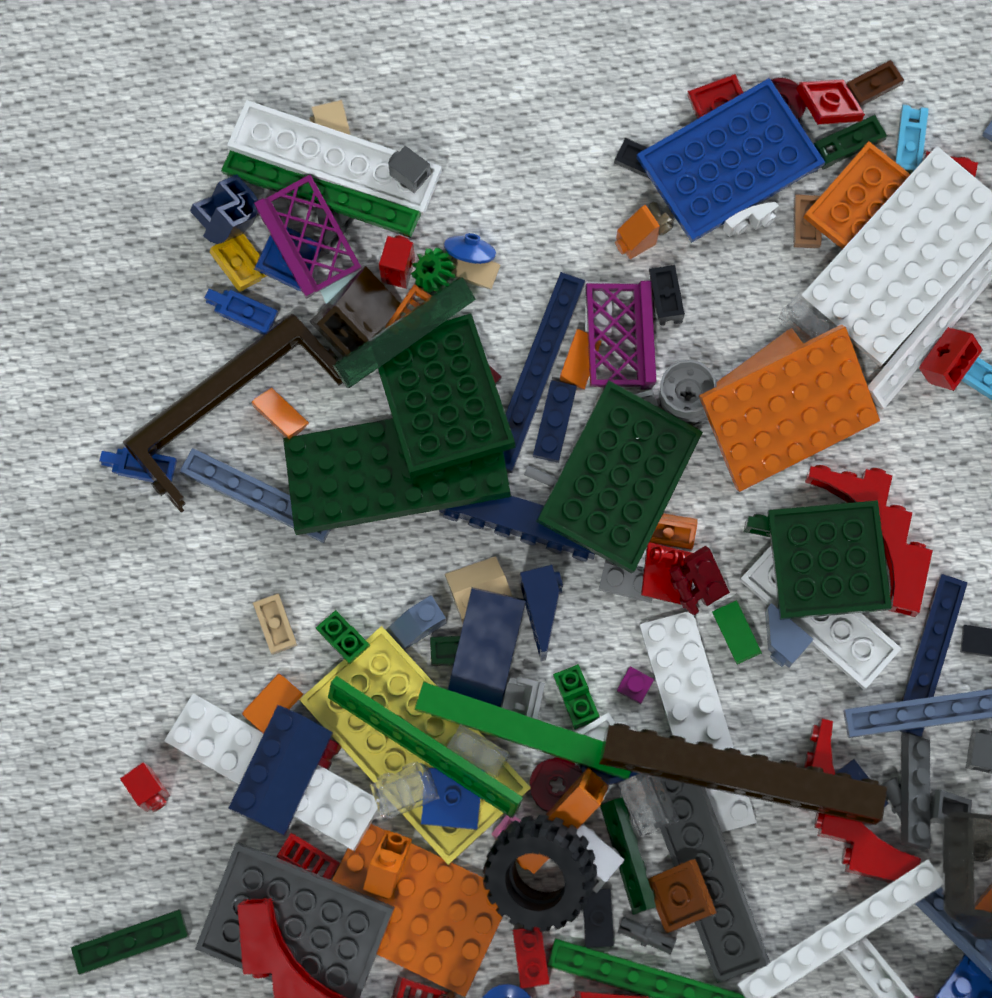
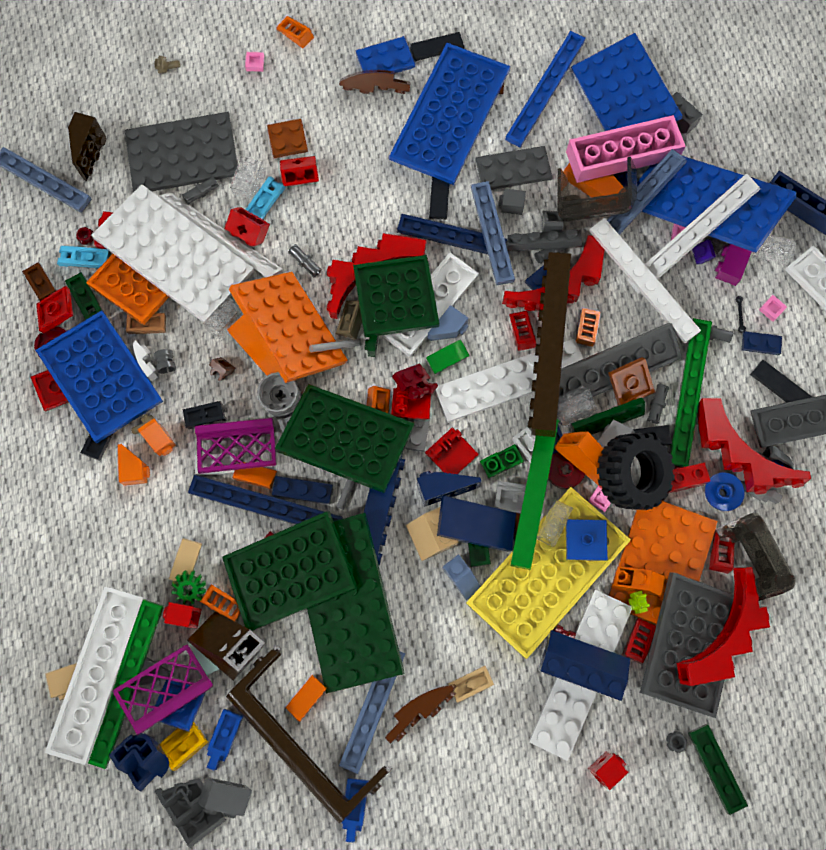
camera: 95 degrees left, 0 degrees up
(159, 273) = (187, 813): none -> dark grey slope
(163, 891) = (682, 742): none -> dark grey plate
(170, 308) = (224, 797): none -> dark grey brick
(250, 552) = (425, 704): none -> reddish brown slope
(276, 693) = (531, 679): orange slope -> none
(342, 637) = (477, 630): green slope -> none
(357, 856) = (638, 602): none -> lime plate
(404, 332) = (240, 605): clear green tile -> none
(404, 790) = (588, 573): clear brick -> none
(409, 169) = (107, 610): dark grey brick -> none
(424, 747) = (555, 562): green tile -> none
(469, 249) = (171, 561): blue dish -> none
(592, 626) = (451, 452): none -> red hinge
(601, 201) = (131, 468): none -> orange slope
(635, 685) = (490, 422): magenta plate -> none
(736, 320) = (222, 367): none -> reddish brown tile
(749, 245) = (164, 360): none -> dark grey wheel
(751, 740) = (526, 341): none -> red slope
(752, 841) = (586, 340): none -> orange slope
(758, 471) = (334, 345): none -> light grey bar
(796, 495) = (350, 320): none -> dark tan slope
(896, 439) = (304, 260): none -> dark grey pin
(949, 136) = (81, 233): none -> dark red plate

